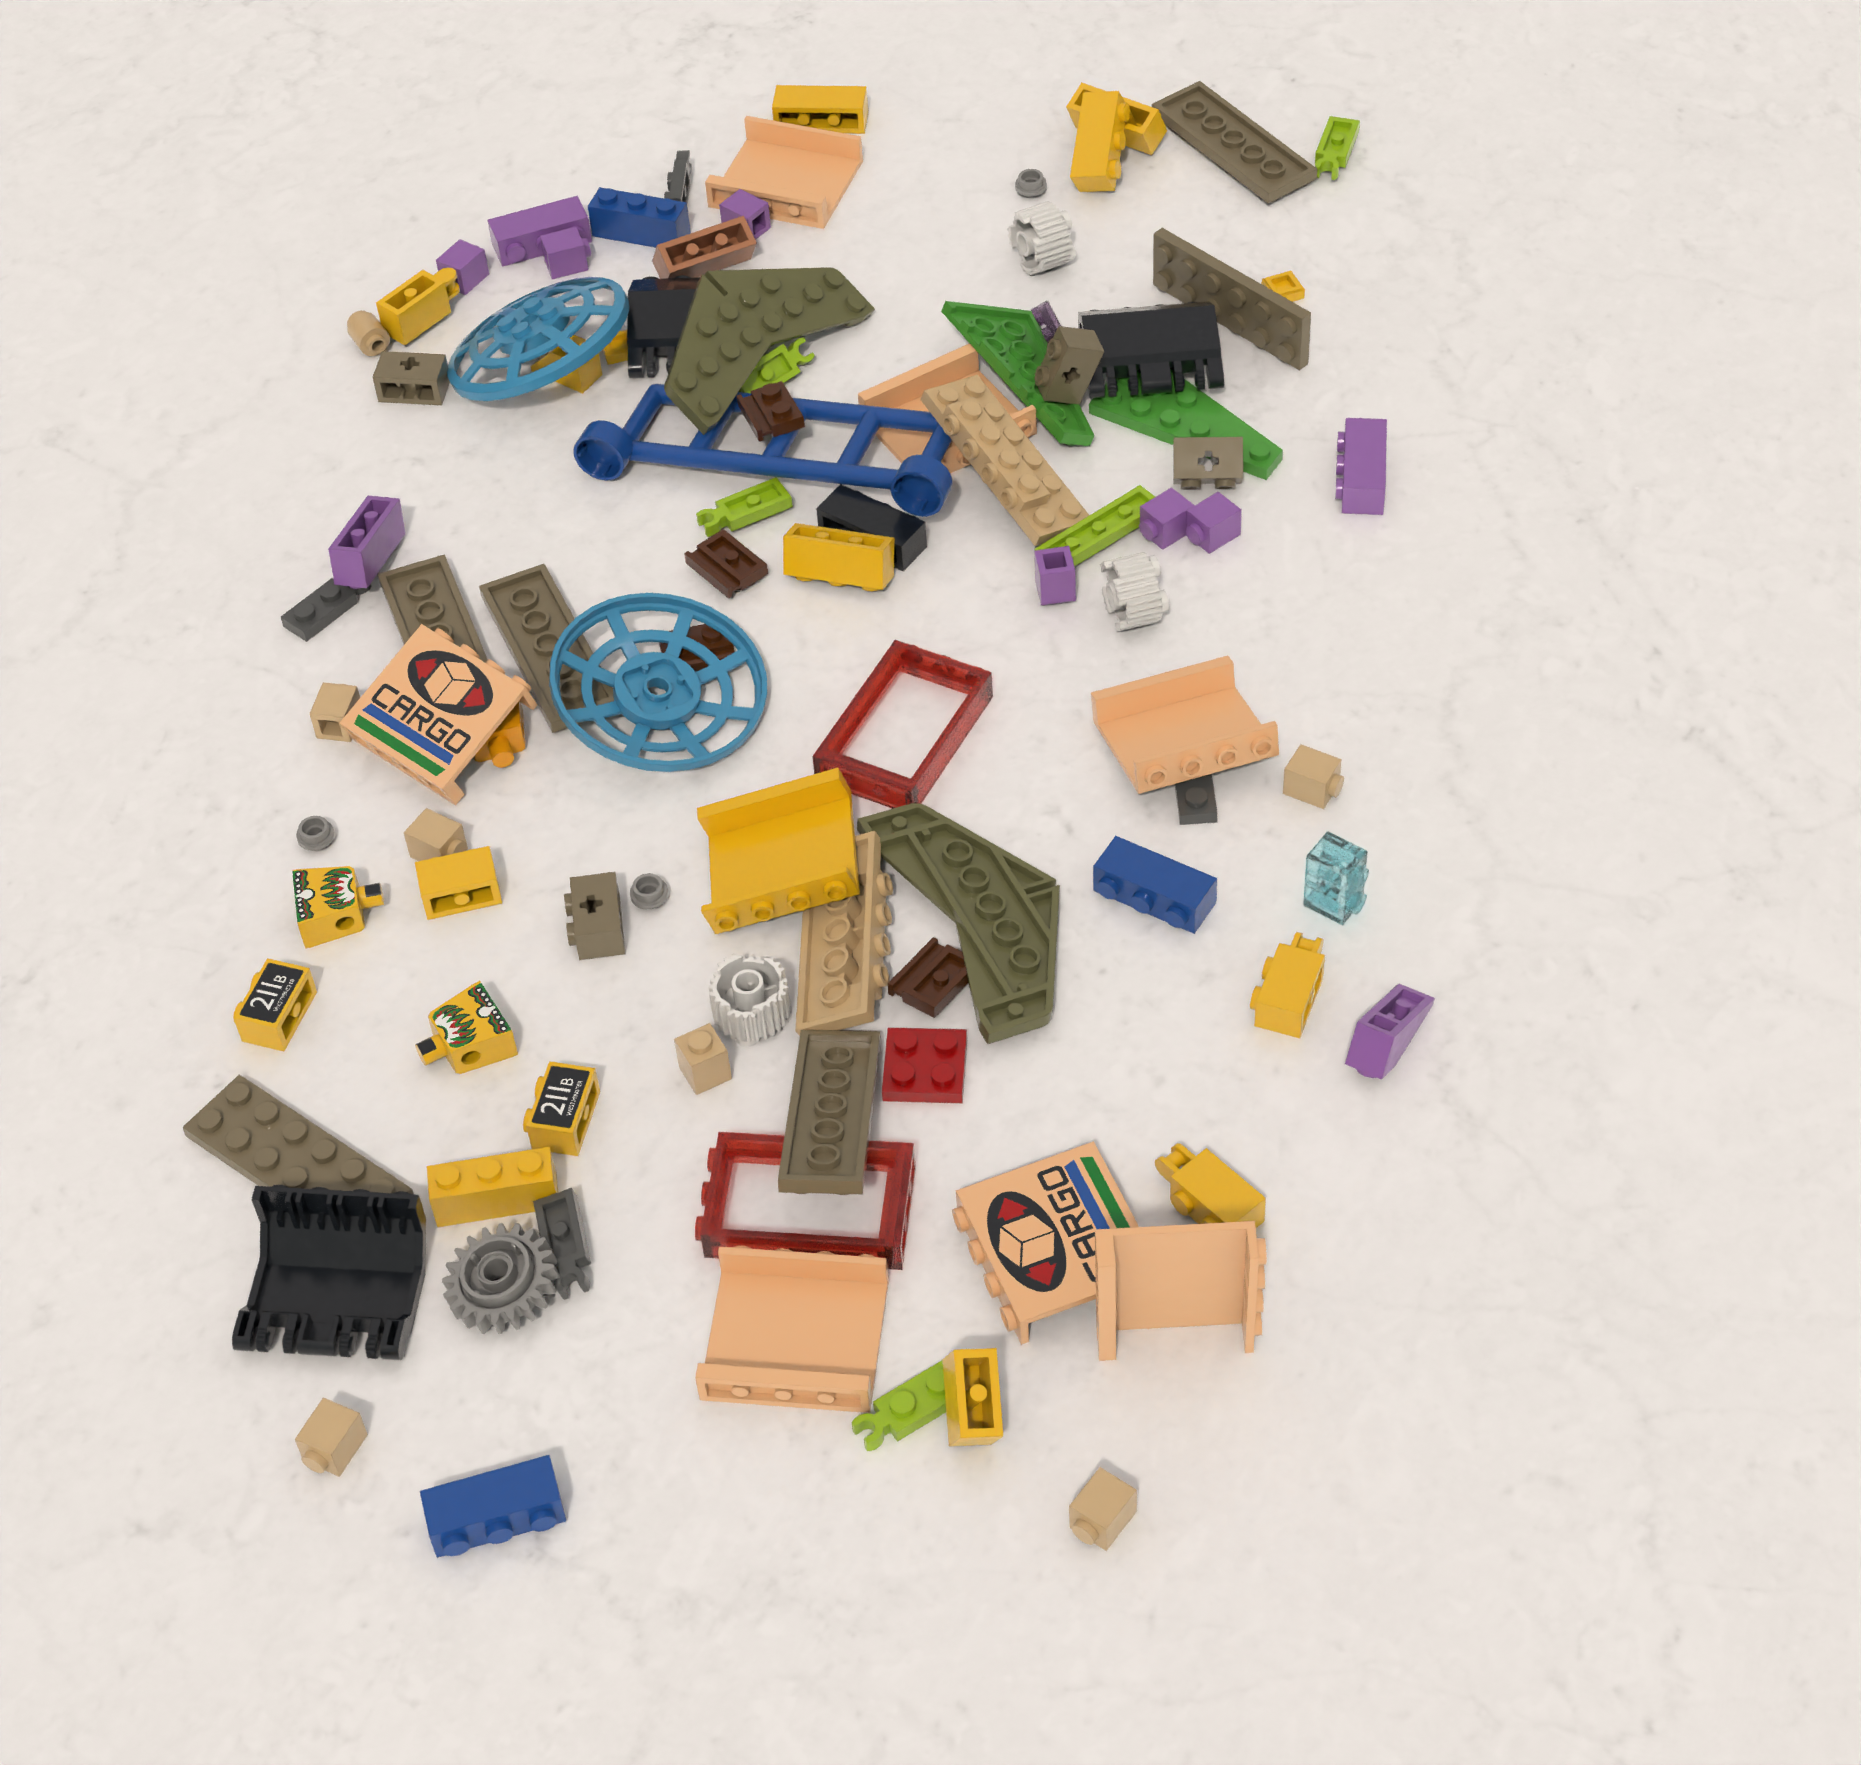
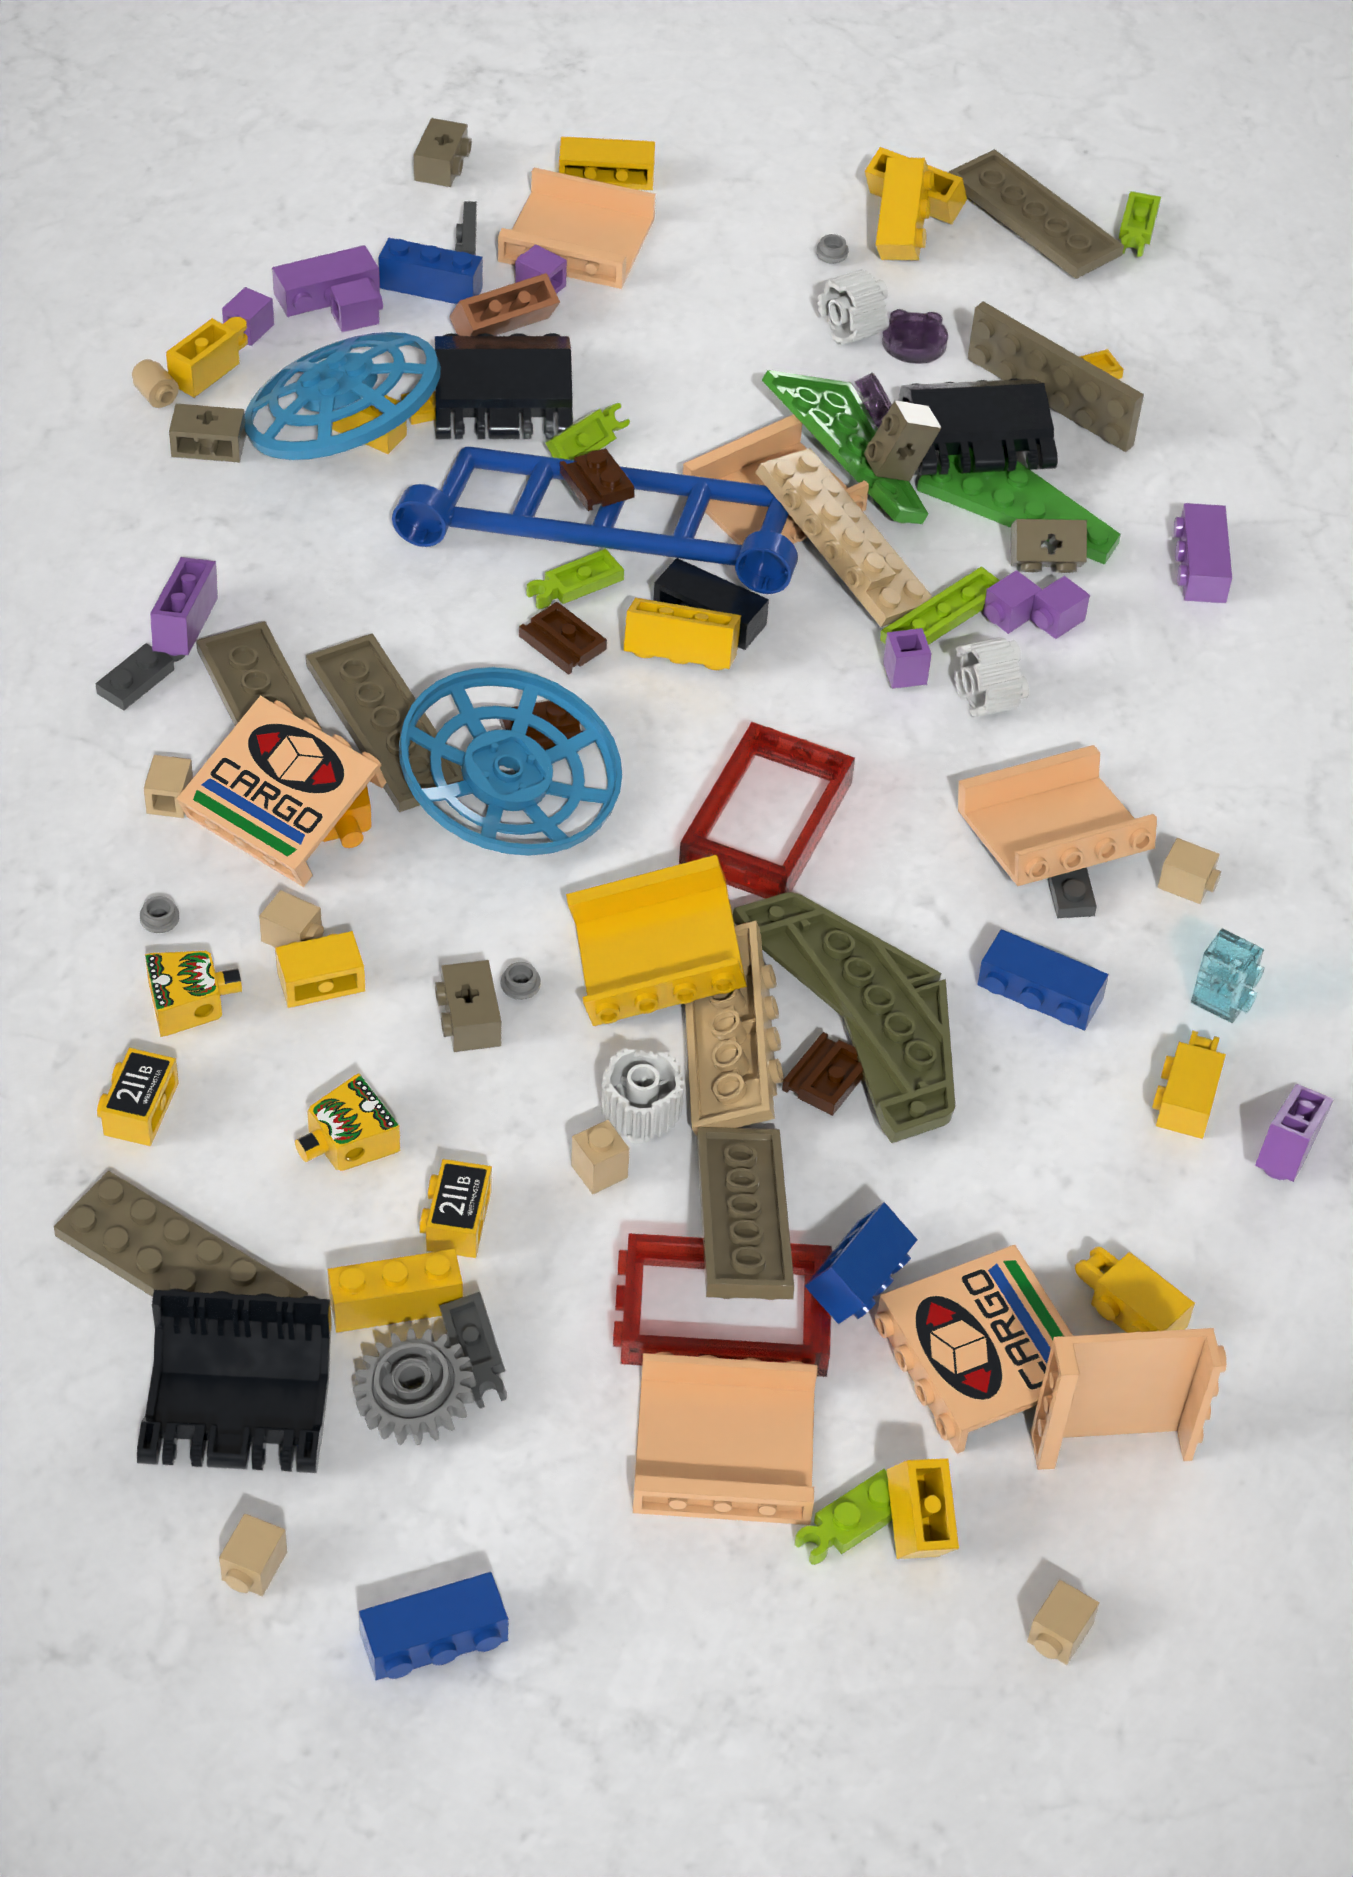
camera: 10 degrees left, 0 degrees up
(663, 105) = (441, 152): none -> dark tan brick
(742, 316) = (554, 384): olive wing -> none
(924, 1065) = (827, 1164): red plate -> none
(941, 1161) = (862, 1264): none -> blue brick
(1102, 265) = (915, 336): none -> clear purple tile

